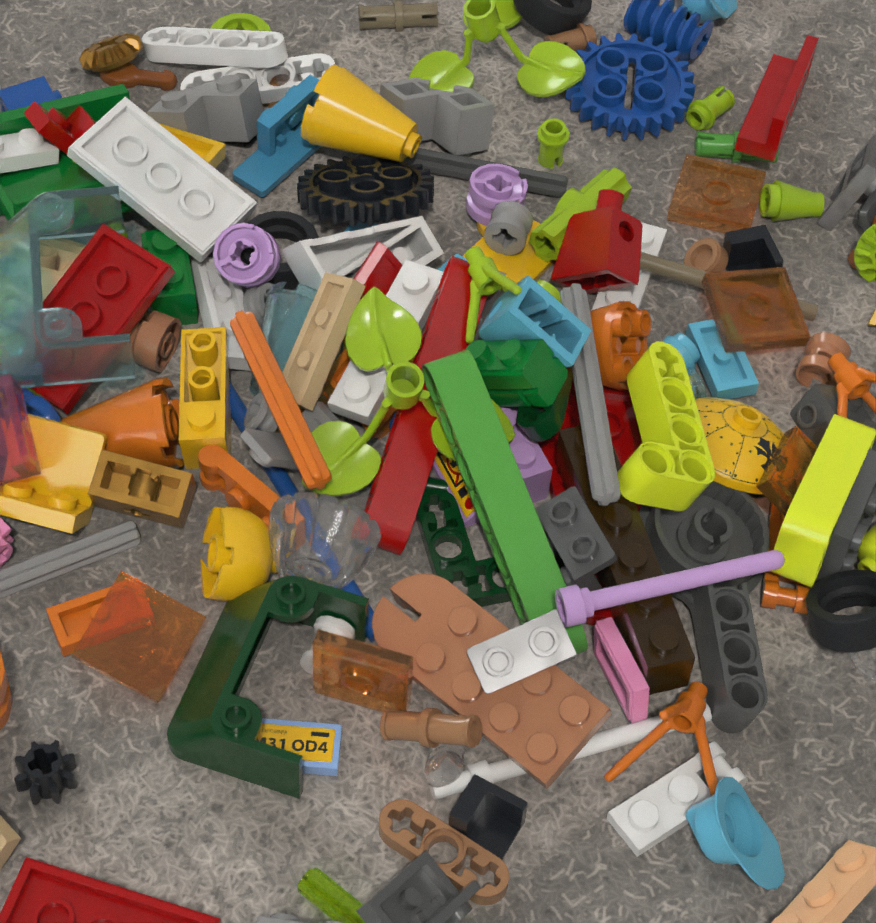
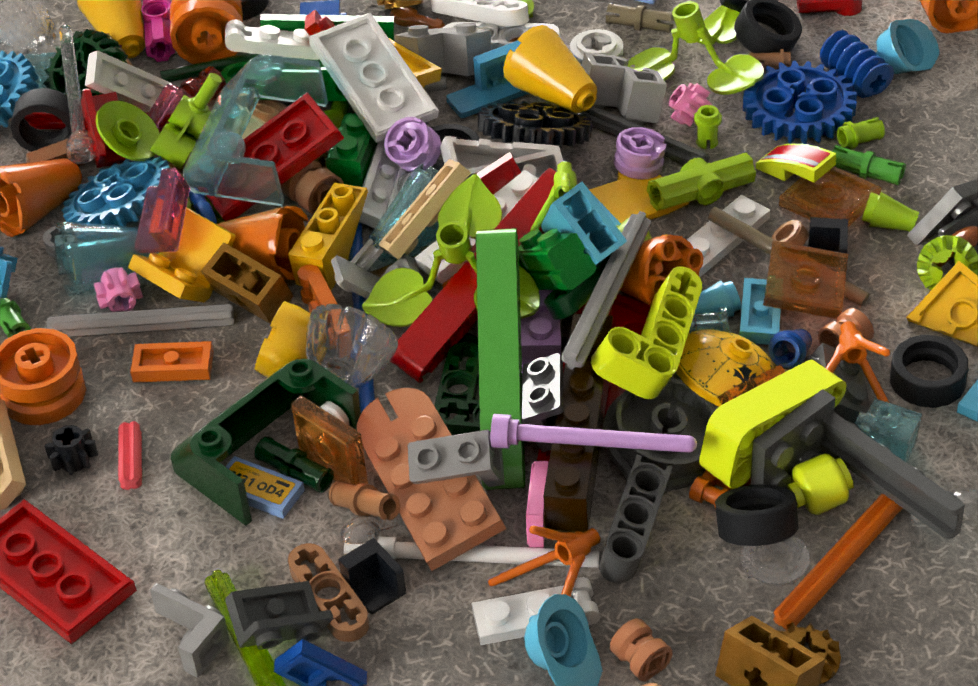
camera: 30 degrees right, 10 degrees down
(116, 755) = (129, 455): none -> coral axle
(139, 637) = (187, 379): clear orange tile -> none
(280, 401) = (375, 245): orange axle -> none
(318, 705) = (294, 464): none -> dark green pin
(372, 55) = (604, 40): none -> white gear
(508, 227) = (632, 175): light grey wheel -> none
(517, 118) = (687, 102): none -> bright pink gear
(600, 247) = (694, 201): red torso -> none
(676, 161) = (797, 159): none -> neon yellow slope
(775, 103) = (918, 136): red fence -> none
(780, 397) = (789, 347): none -> blue cone
(813, 807) = (636, 645): none -> nougat wheel

